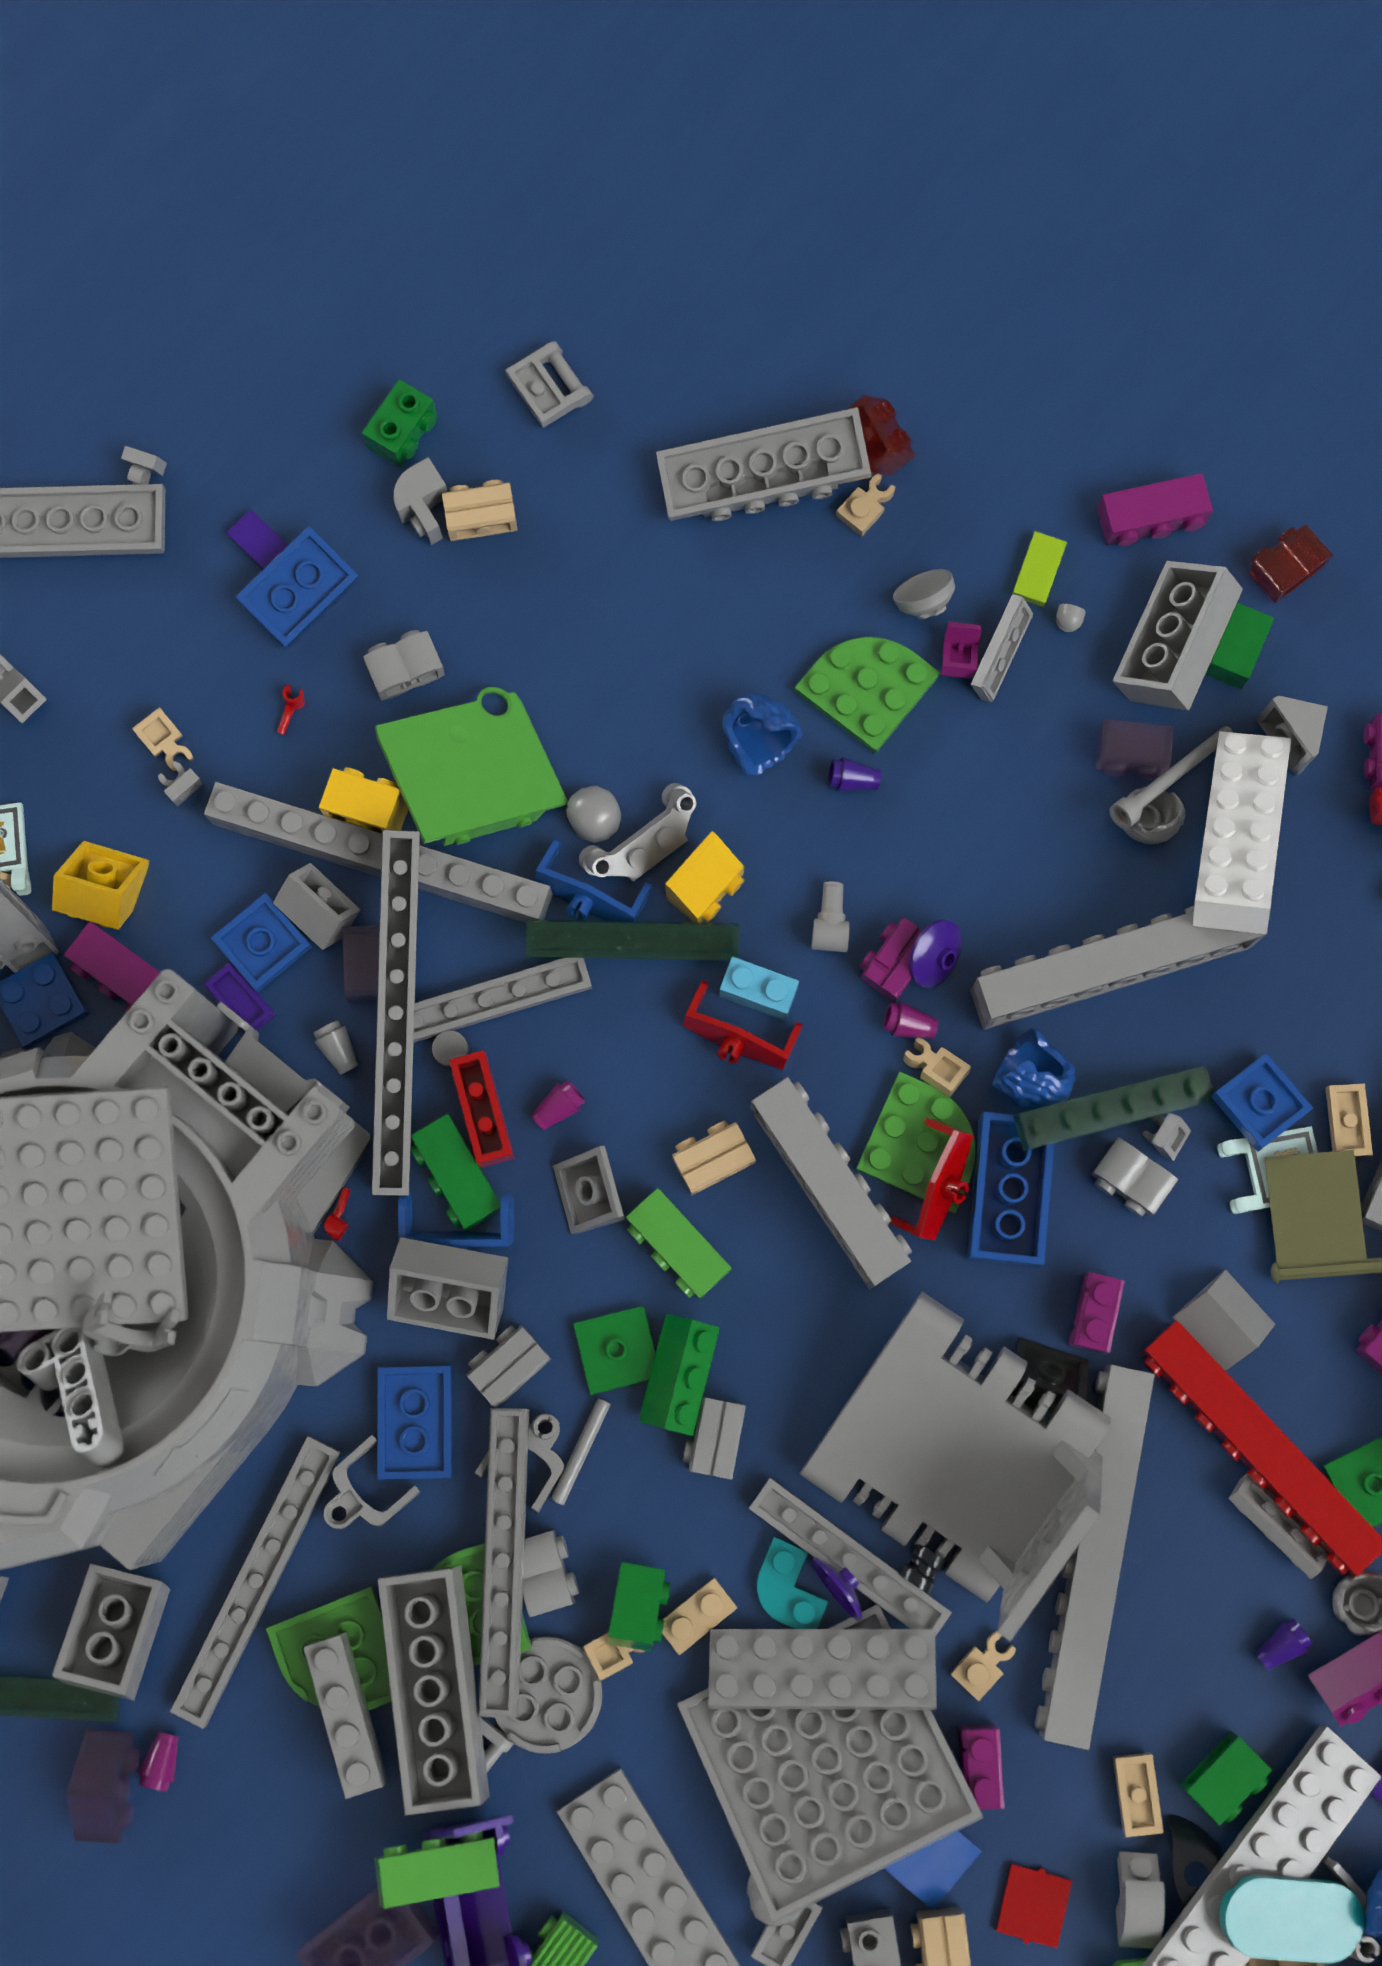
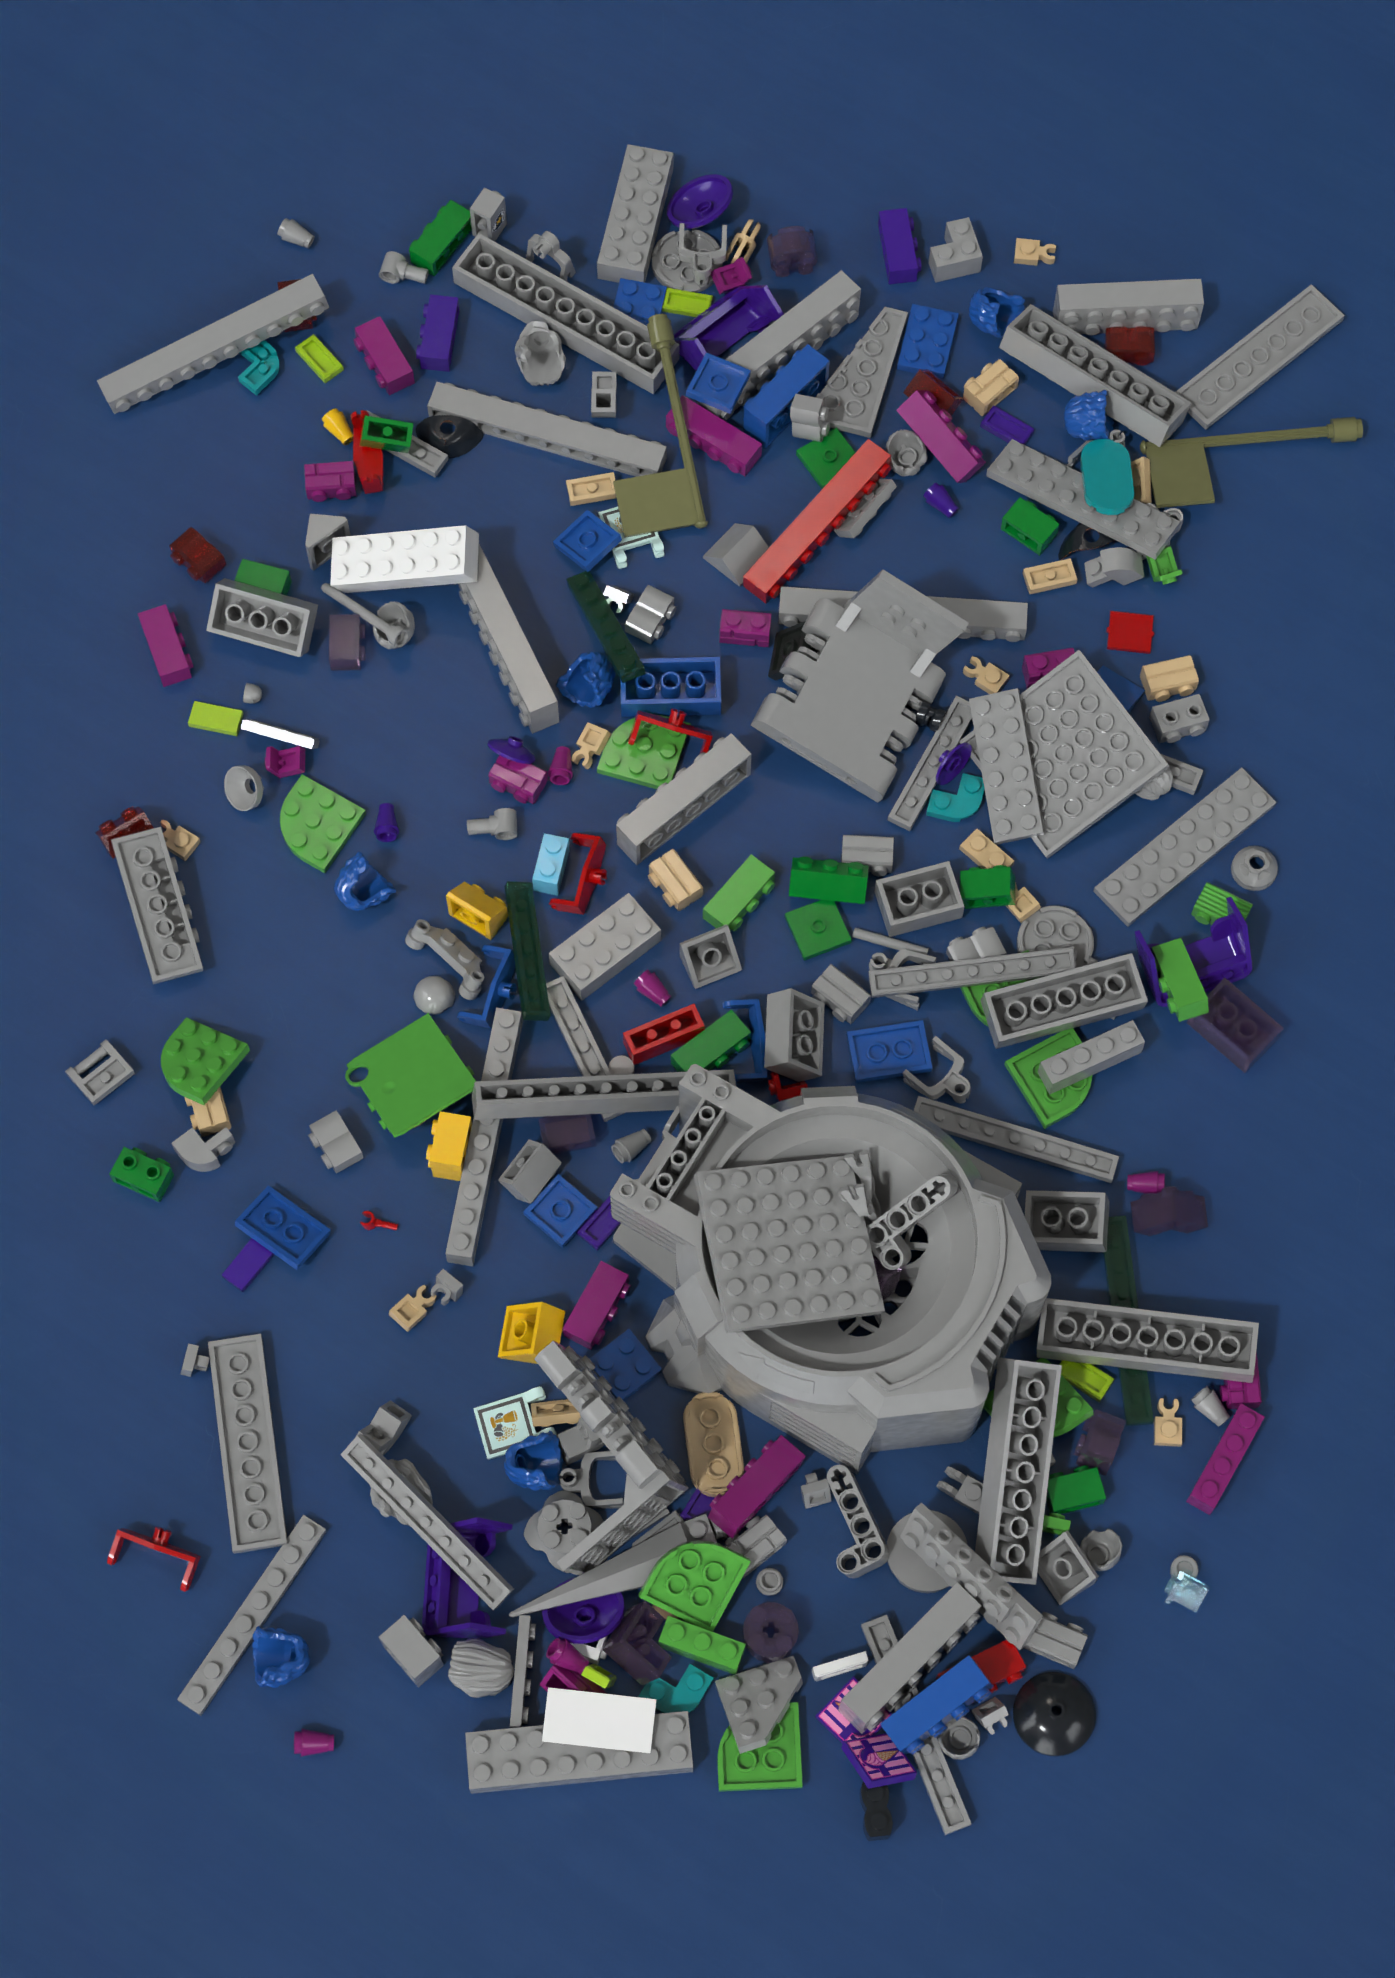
camera: 100 degrees left, 10 degrees down
(376, 1270) = (786, 1091): none -> red bracket
(537, 500) = (200, 1060): none -> bright green plate
(626, 1047) = (605, 946): none -> light grey brick
(632, 1502) = (919, 899): none -> light grey brick

